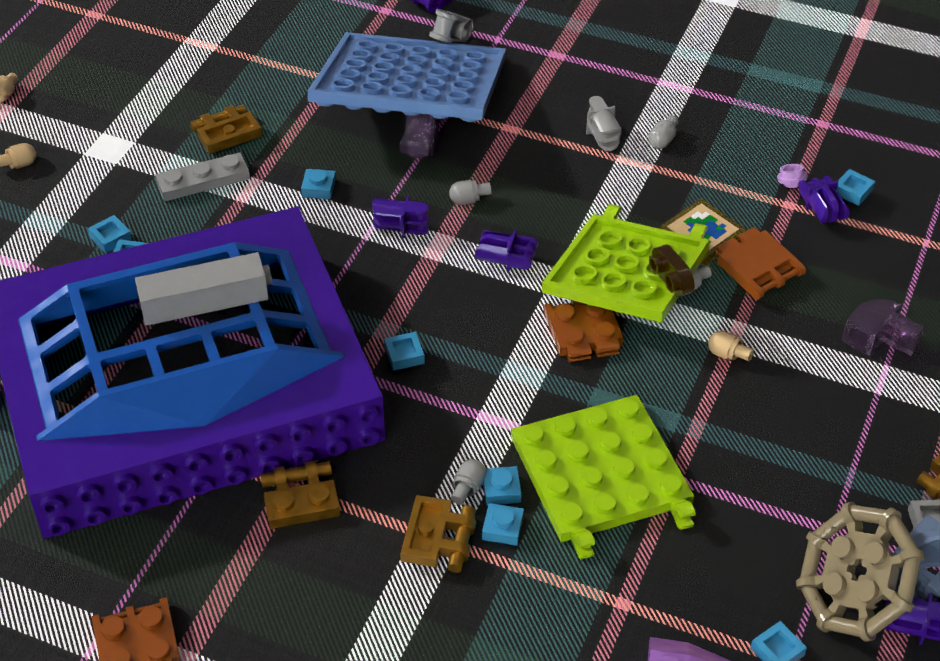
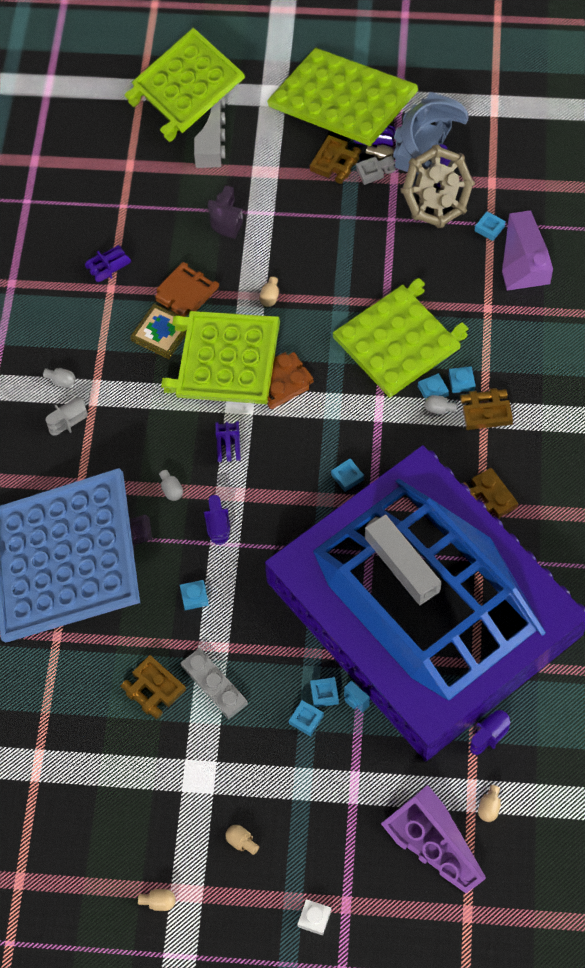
camera: 105 degrees left, 15 degrees up
(672, 270) = (243, 314): dark brown plate -> none
(791, 175) = (87, 287): lavender plate -> none
(855, 187) = (86, 248): dark azure plate -> none

